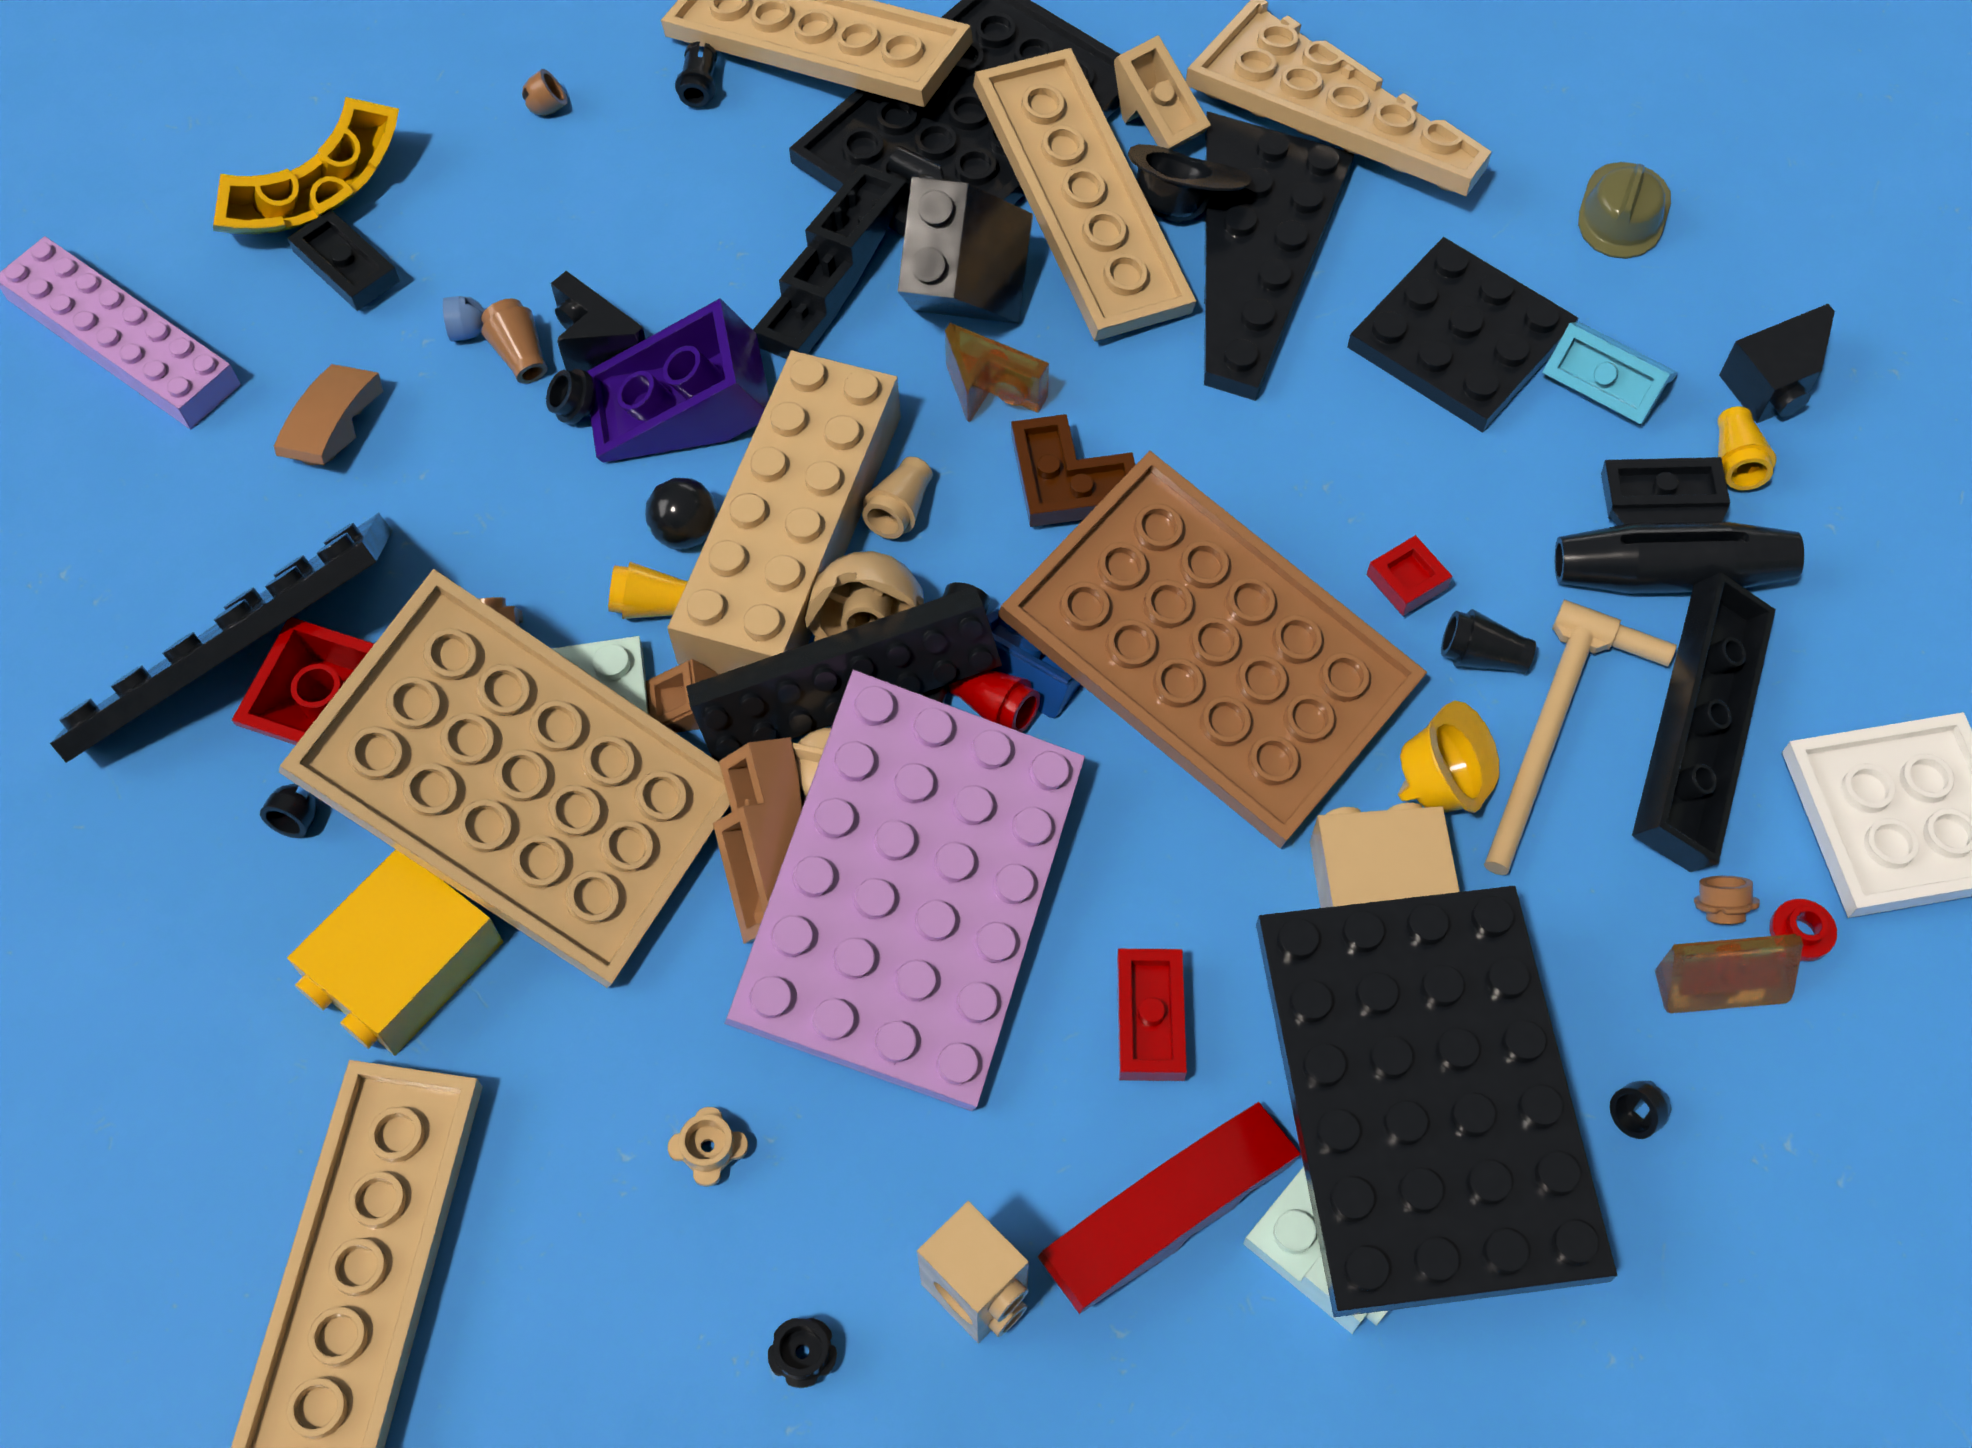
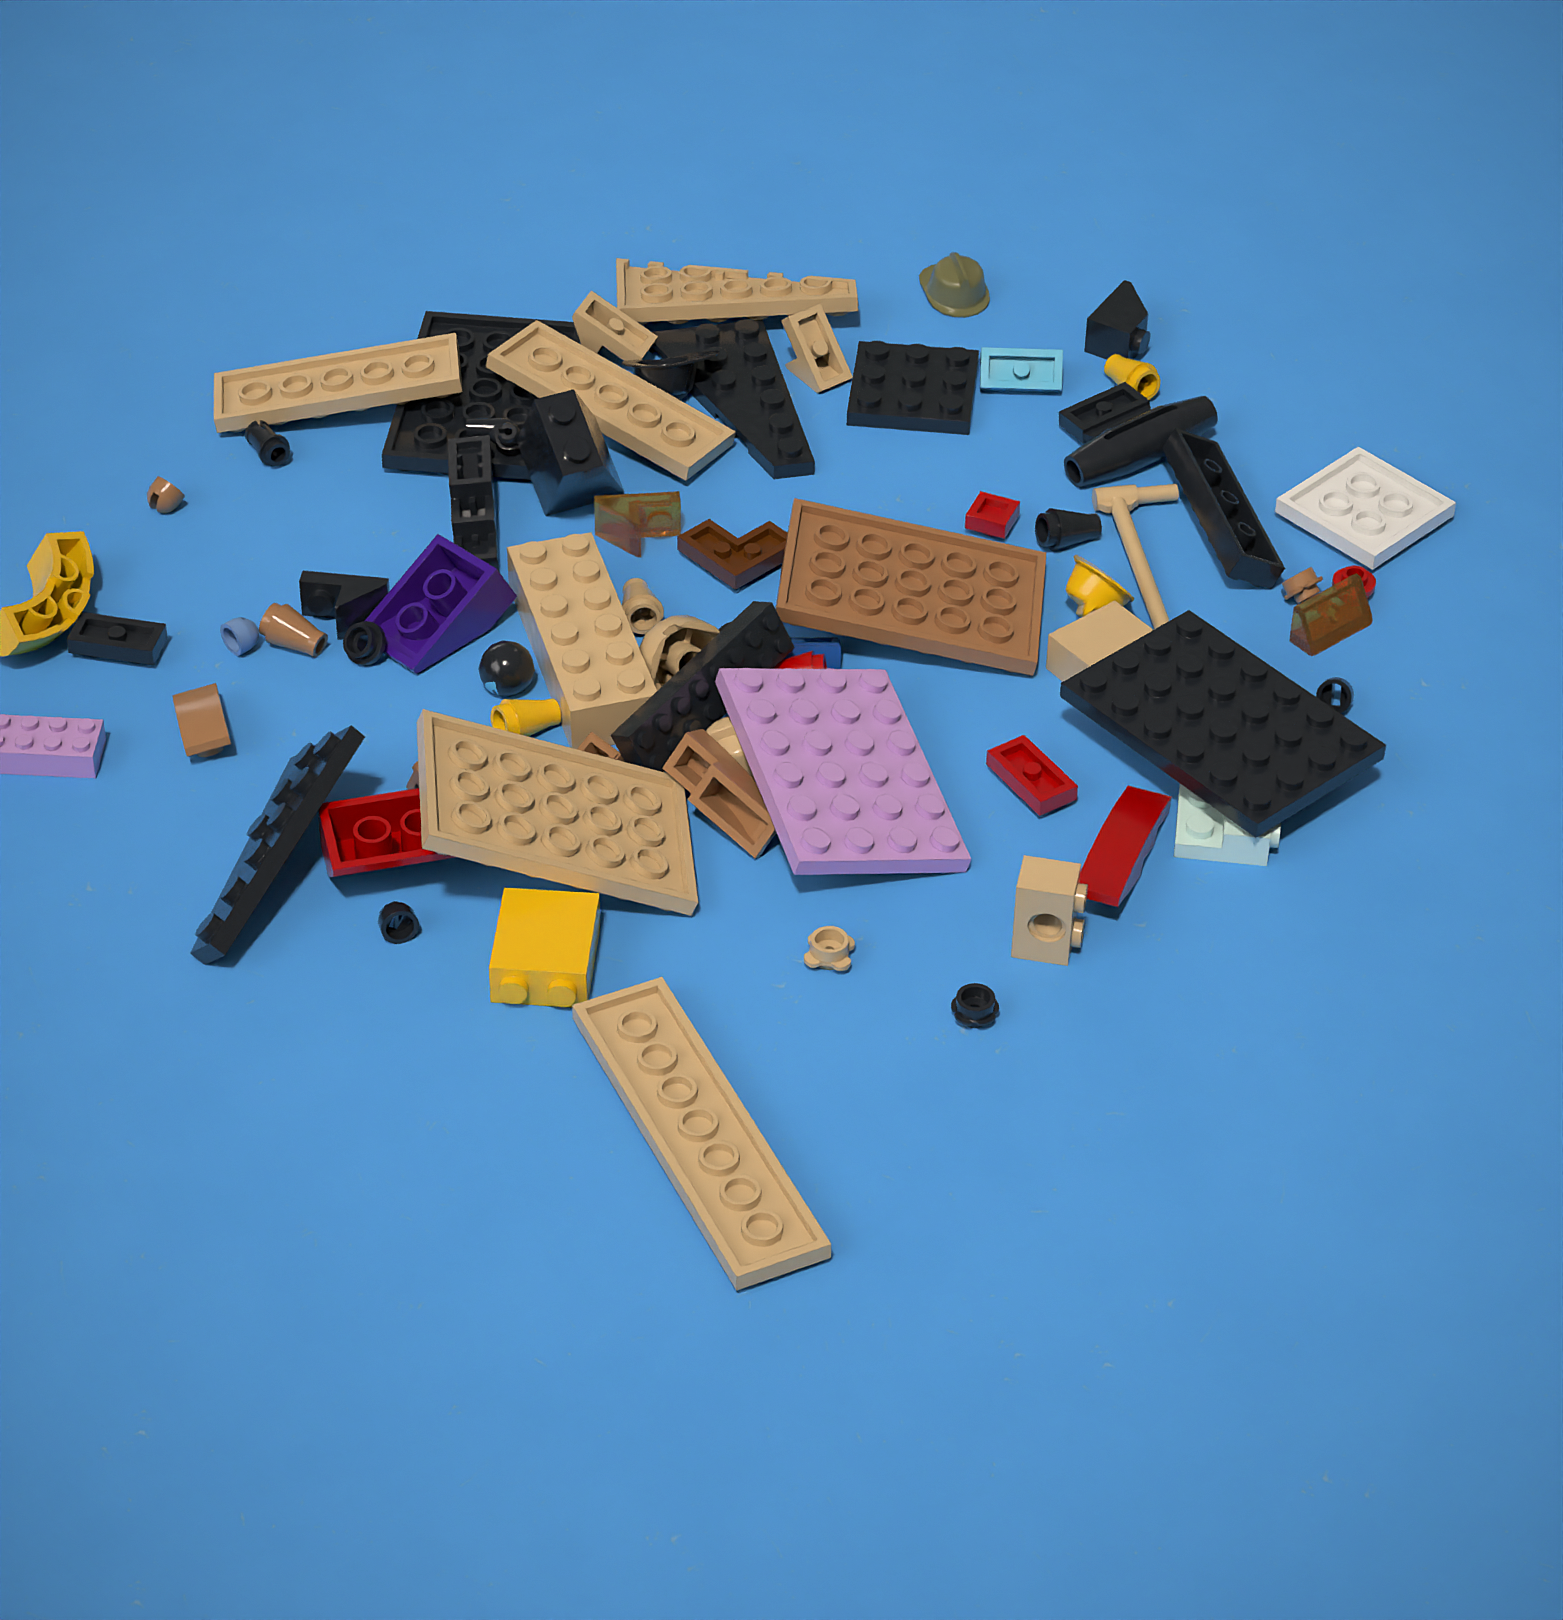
camera: 35 degrees left, 20 degrees down
(1375, 228) = (818, 354): none -> tan slope

